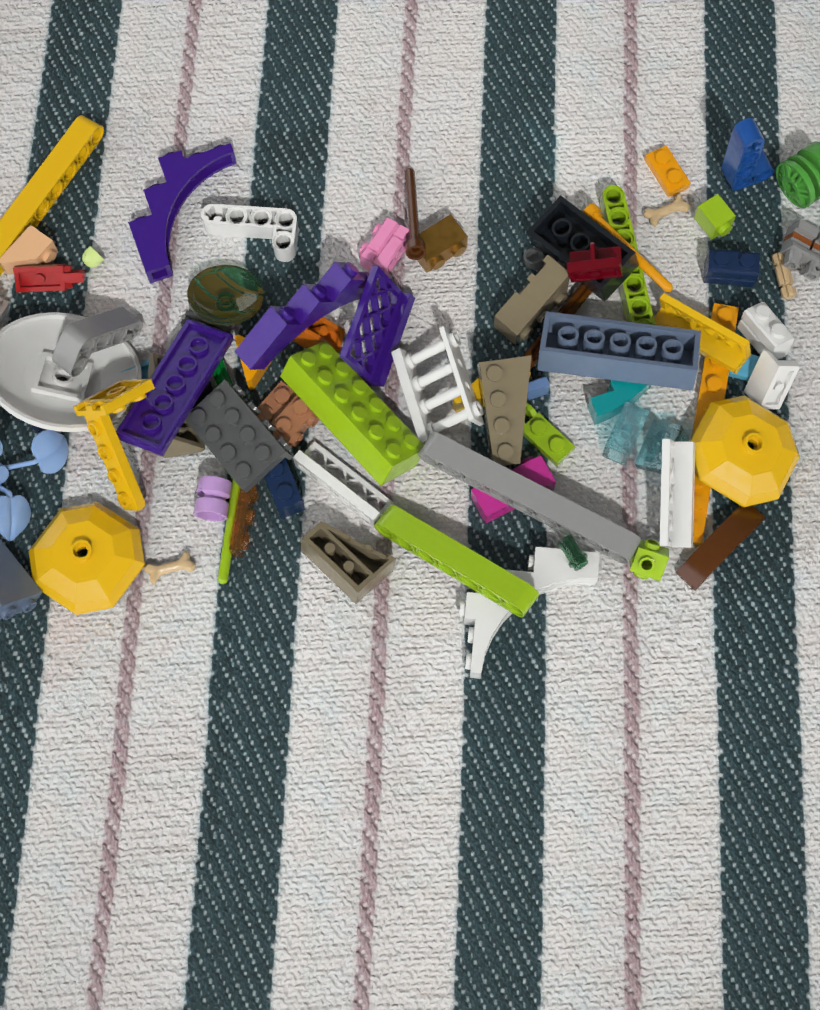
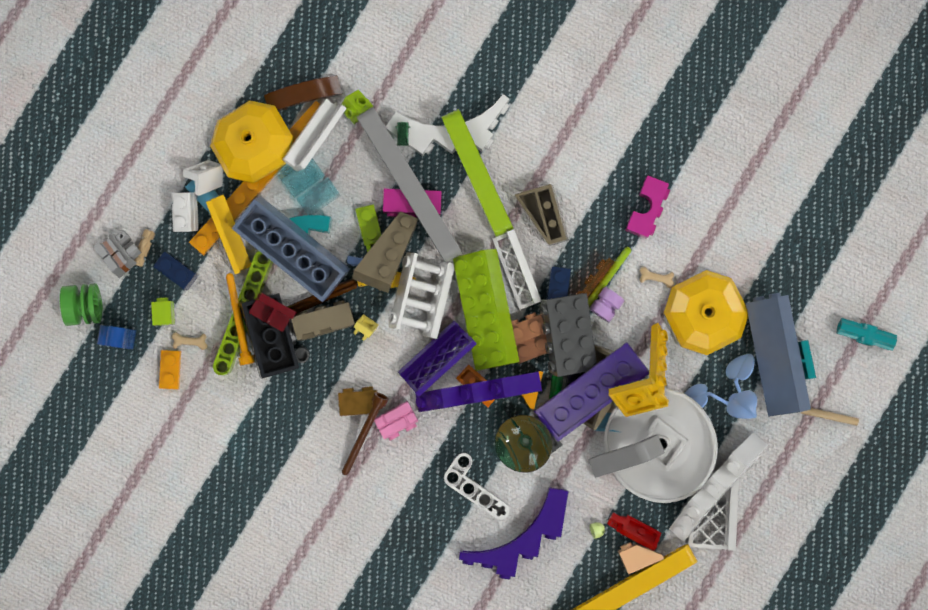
camera: 155 degrees left, 15 degrees up
(224, 664) = (655, 192): none -> dark pink arch
(480, 326) = (365, 326): none -> light yellow tile

